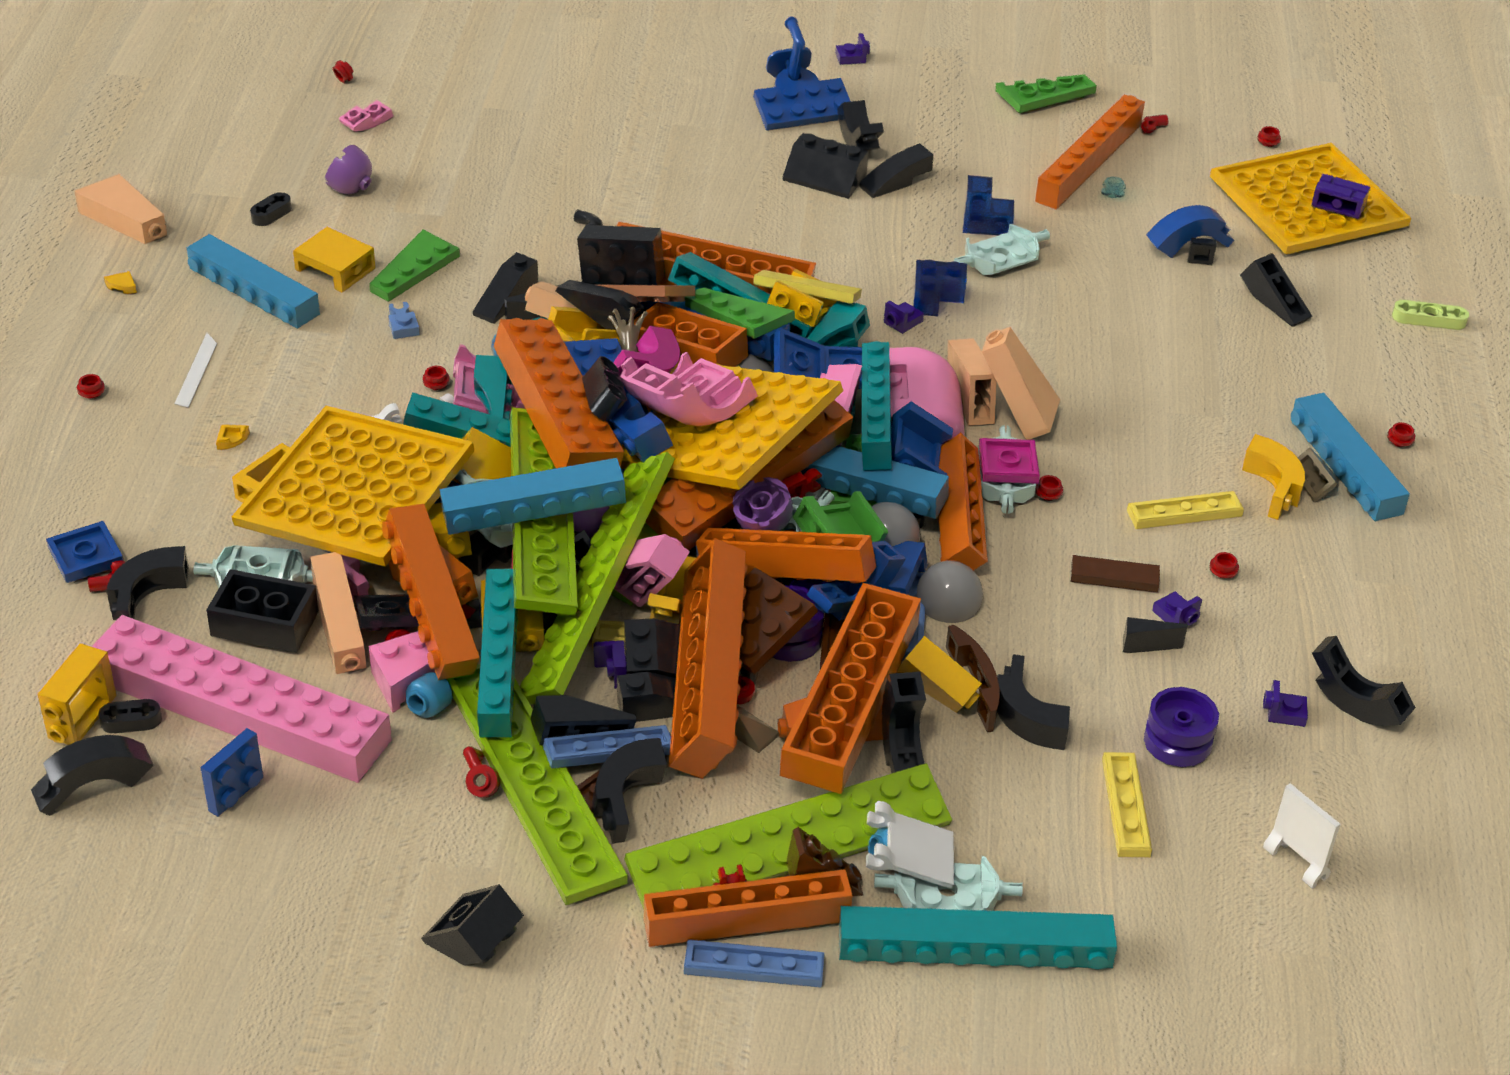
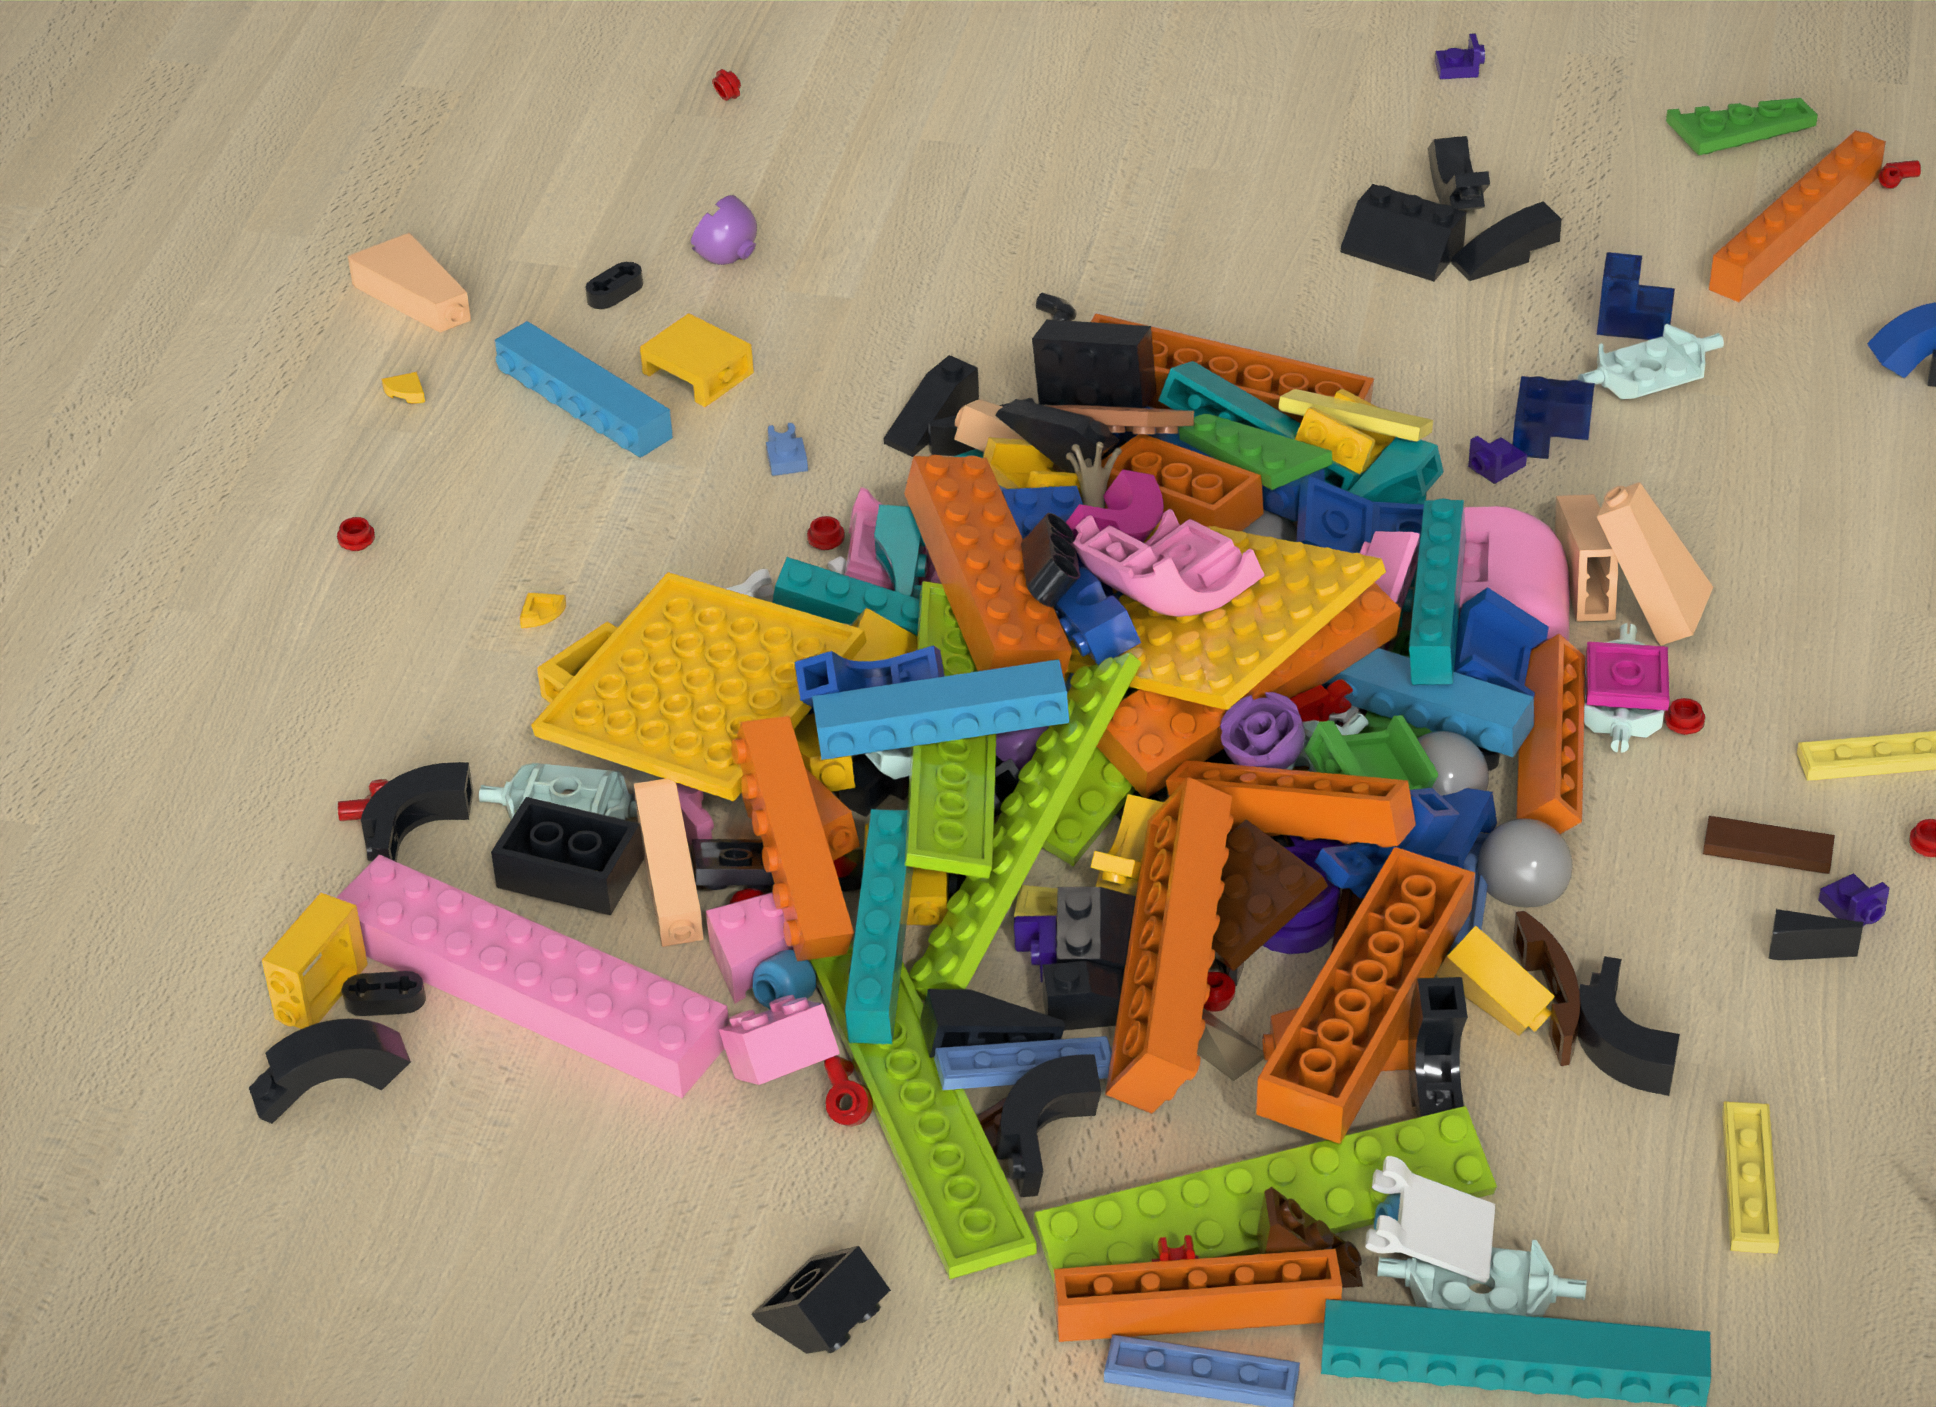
camera: 10 degrees right, 0 degrees up
(84, 551) = (335, 764): blue plate -> none
(196, 371) = (499, 516): white sticker -> none
(232, 772) = (513, 1076): blue plate -> none
(363, 119) = (762, 151): bright pink slope -> none
(413, 264) = (805, 369): bright green wing -> none
(429, 737) = (778, 1040): none -> bright pink brick
(452, 472) = (834, 674): none -> blue arch
(650, 567) = (1097, 814): bright pink wedge -> none
(794, 100) = (1368, 133): blue plate -> none
(1113, 187) = (1827, 270): clear light blue plate -> none
(1181, 726) = (1838, 1069): dark purple wheel -> none

